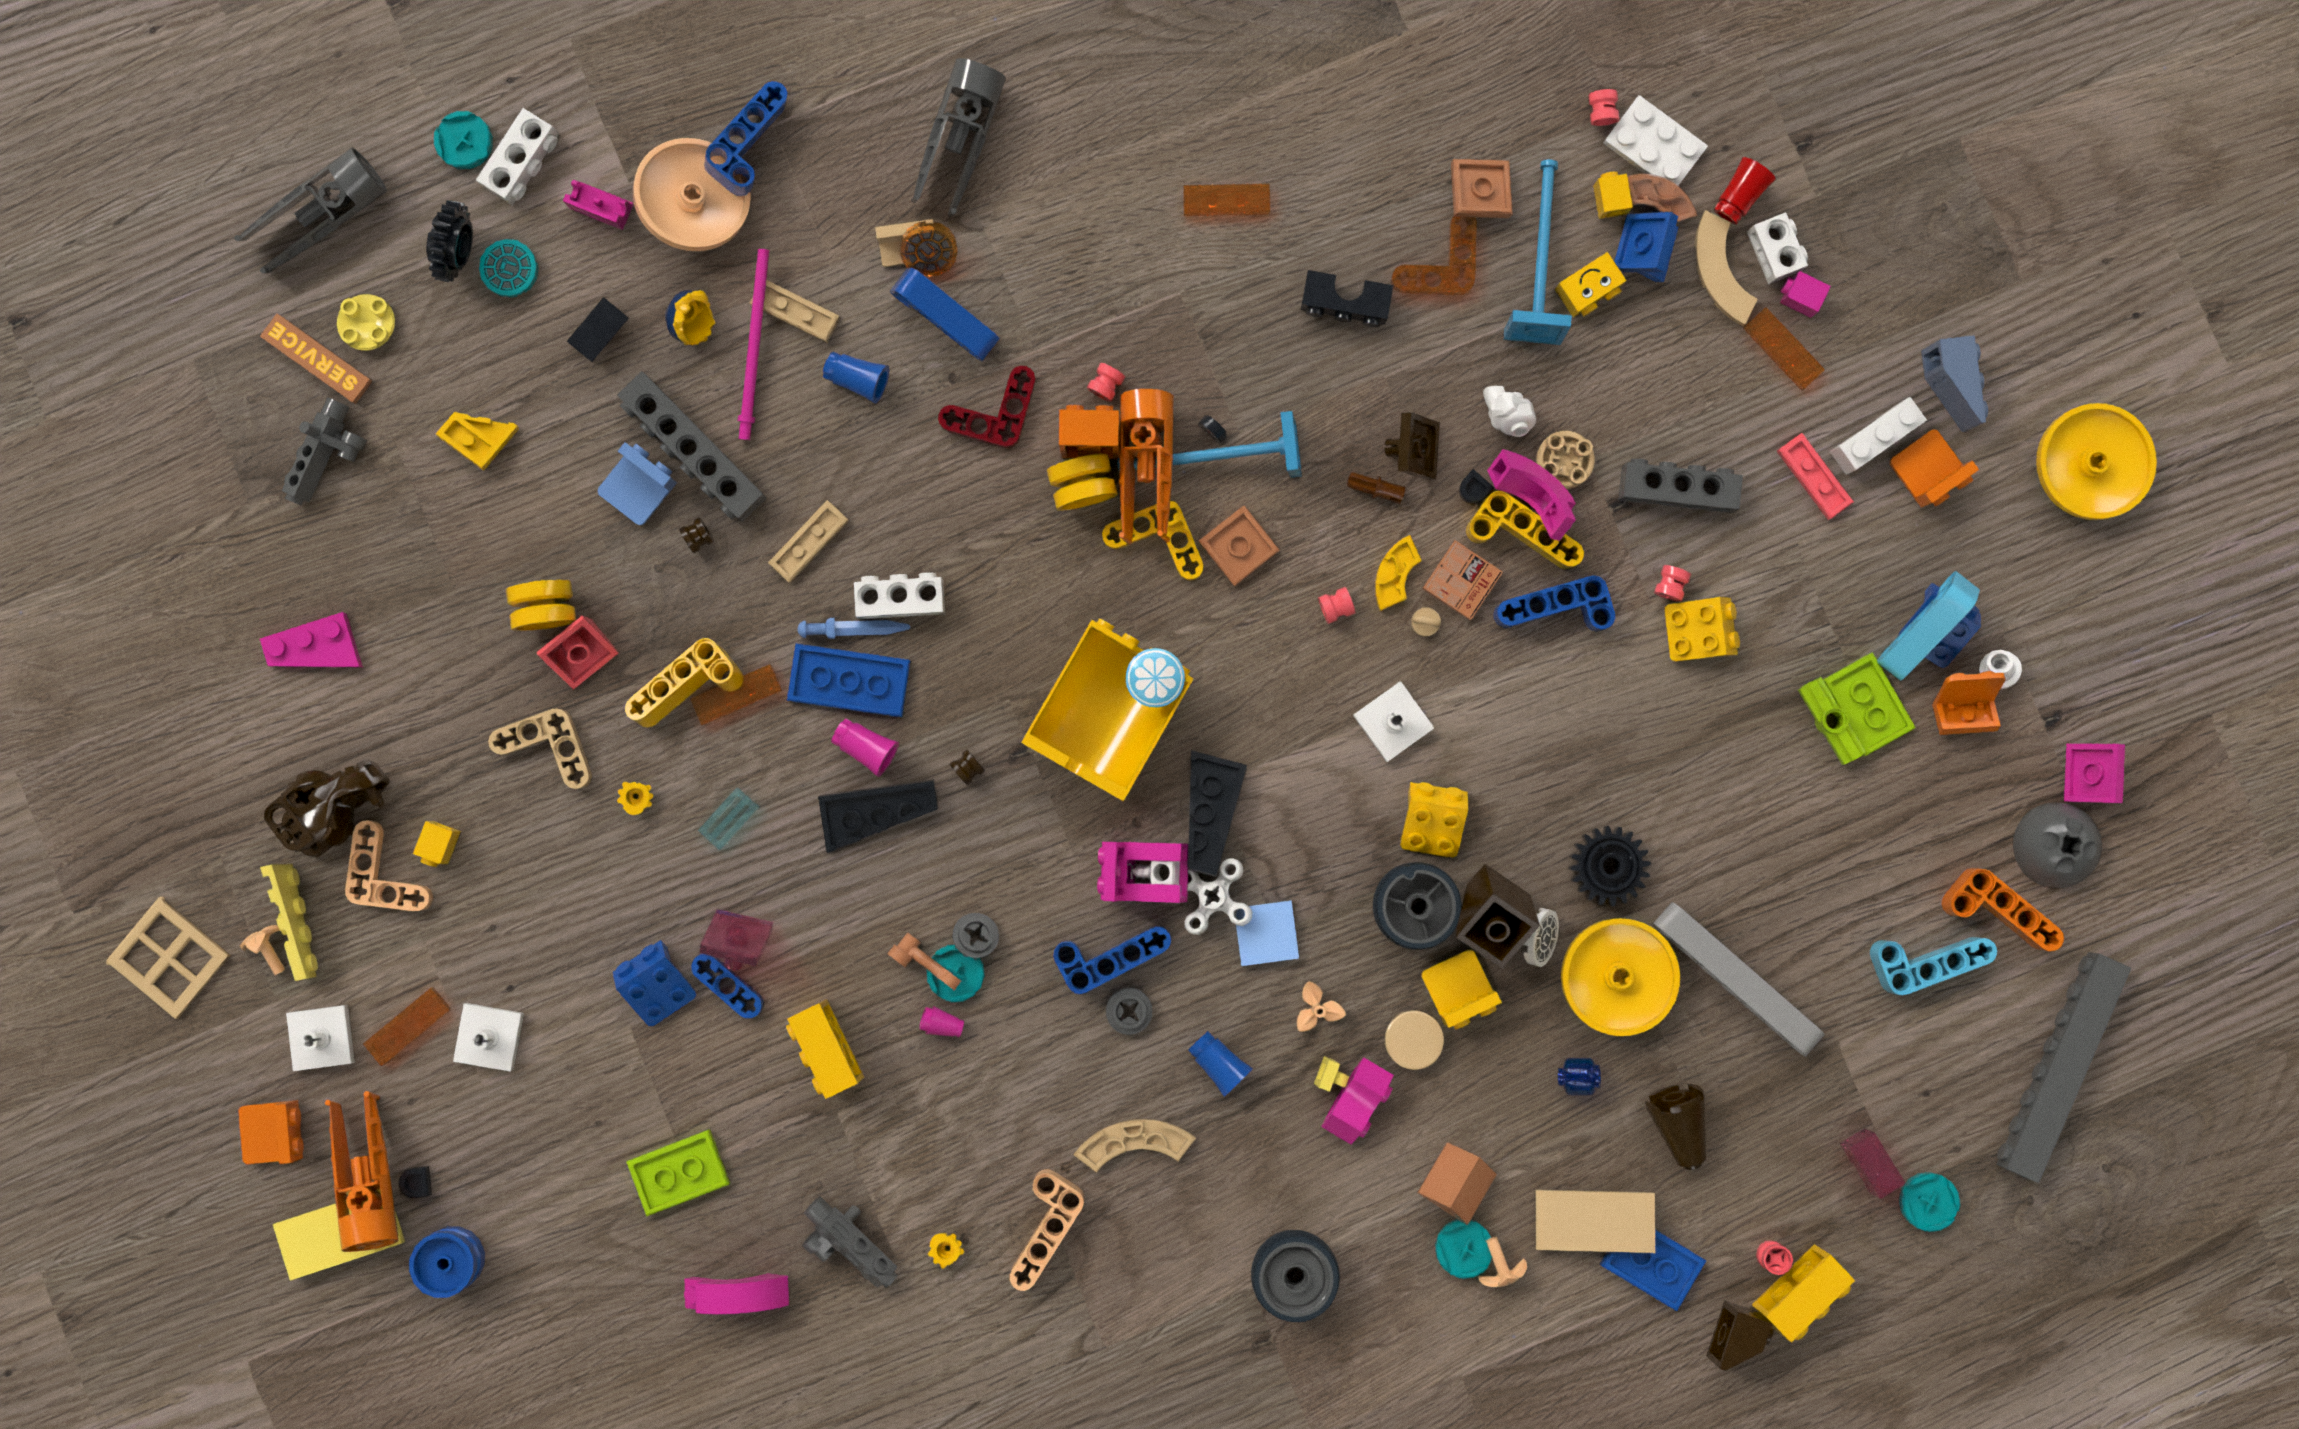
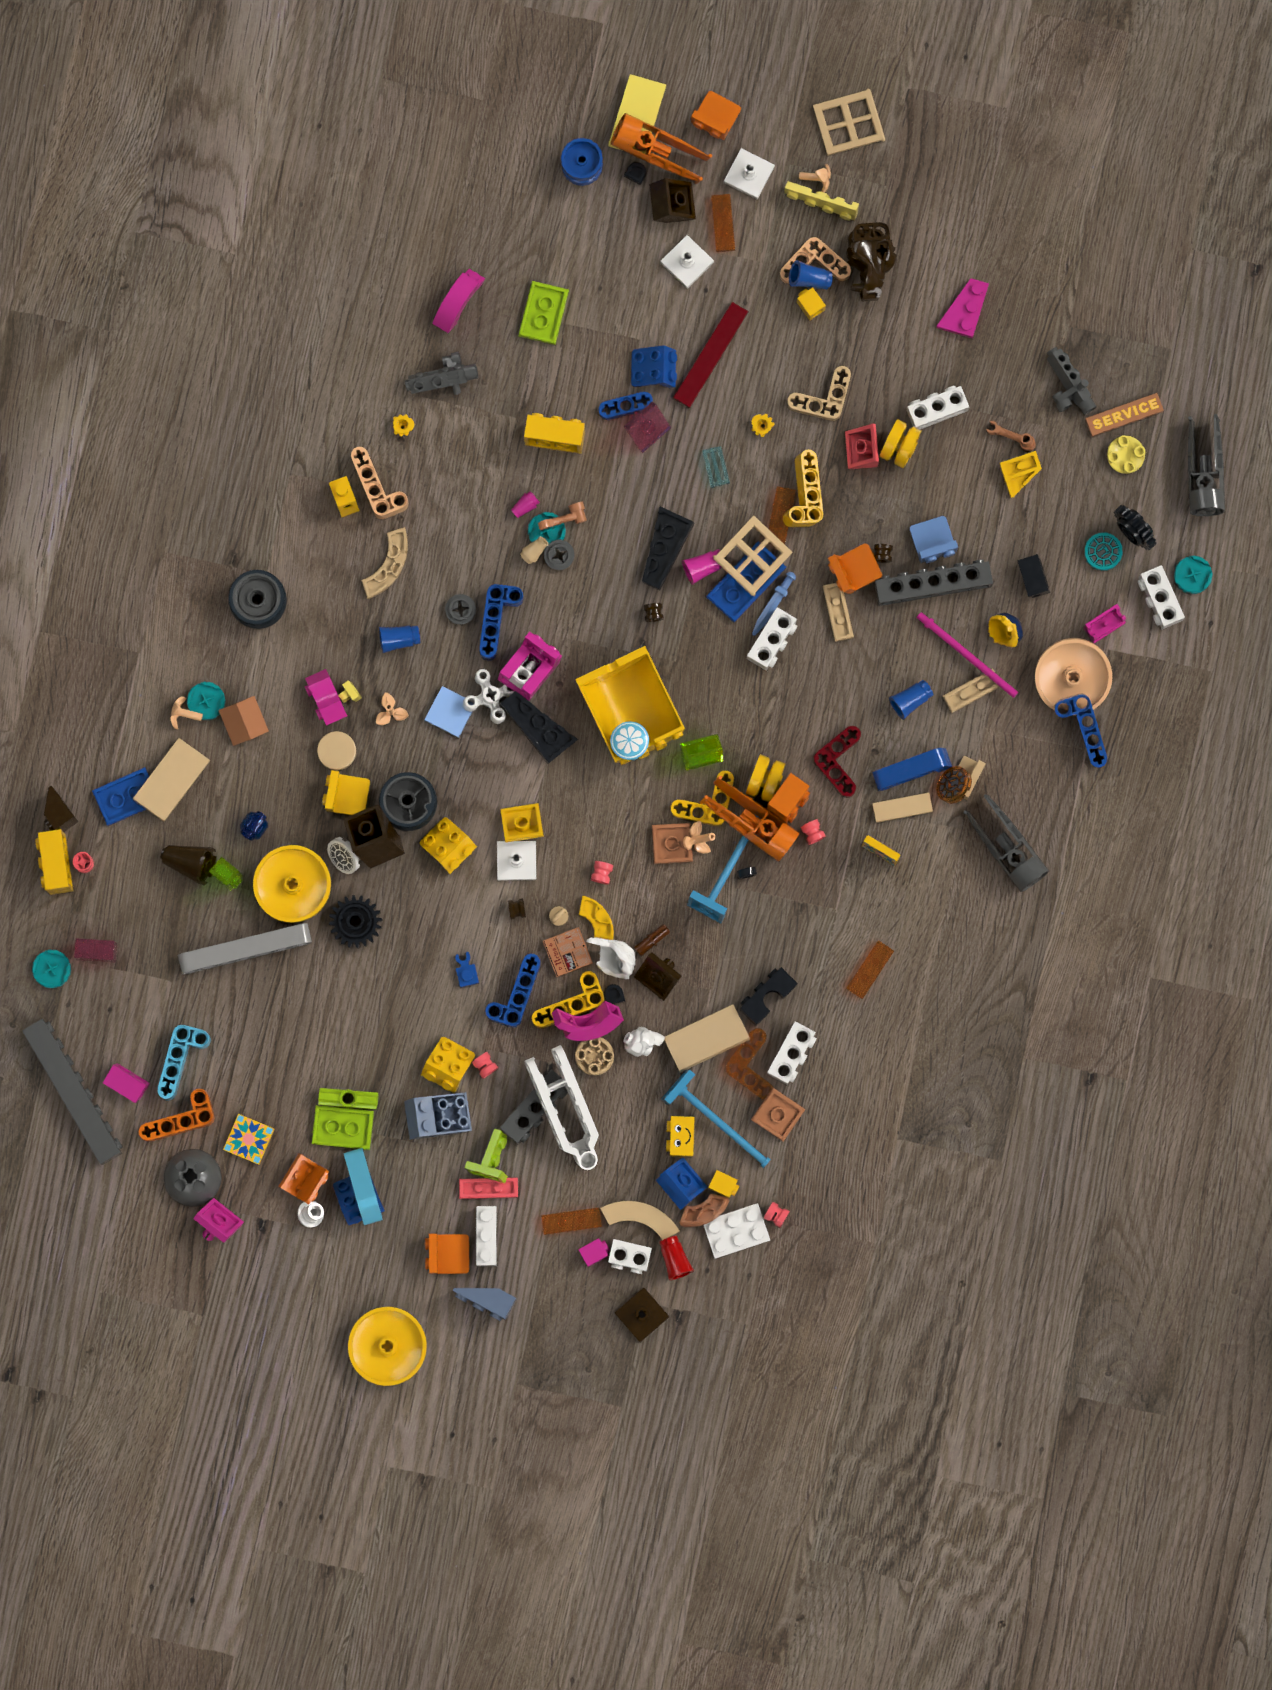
camera: 125 degrees right, 5 degrees down
(401, 868) = (809, 276): none -> blue plant
(421, 1110) = (672, 201): none -> dark brown slope
(434, 469) = (1026, 446): none -> nougat brick
(455, 580) = (932, 416): none -> white brick
(588, 923) = (711, 355): none -> dark red tile
(739, 554) = (855, 569): none -> orange bracket
(810, 693) = (752, 555): none -> tan window
(994, 971) = (533, 551): none -> tan cone
(999, 296) = (902, 807): none -> tan tile
(1072, 280) = (881, 850): none -> yellow tile
(1088, 1259) = (344, 496): none -> yellow torso
(1102, 585) = (701, 752): none -> clear neon green brick
(1215, 510) = (698, 840): none -> light nougat plant
(1344, 746) = (521, 822): none -> yellow slope
(1385, 233) = (792, 1043): none -> white brick
(1431, 514) = (615, 957): none -> white hair
(1450, 337) = (706, 1038): none -> tan tile
(1454, 678) = (516, 909): none -> dark brown wheel
(1574, 685) = (466, 973): none -> blue plate
(1667, 1067) = (226, 874): none -> clear neon green brick
(1687, 392) = (583, 1149): none -> white piece
(1774, 597) = (437, 1115): none -> sand blue slope
(1784, 493) = (491, 1159): none -> lime bracket
(1835, 187) = (642, 1314): none -> dark brown tile
(1963, 809) = (248, 1139): none -> tile
(2004, 1008) = (126, 1083): none -> dark pink hinge

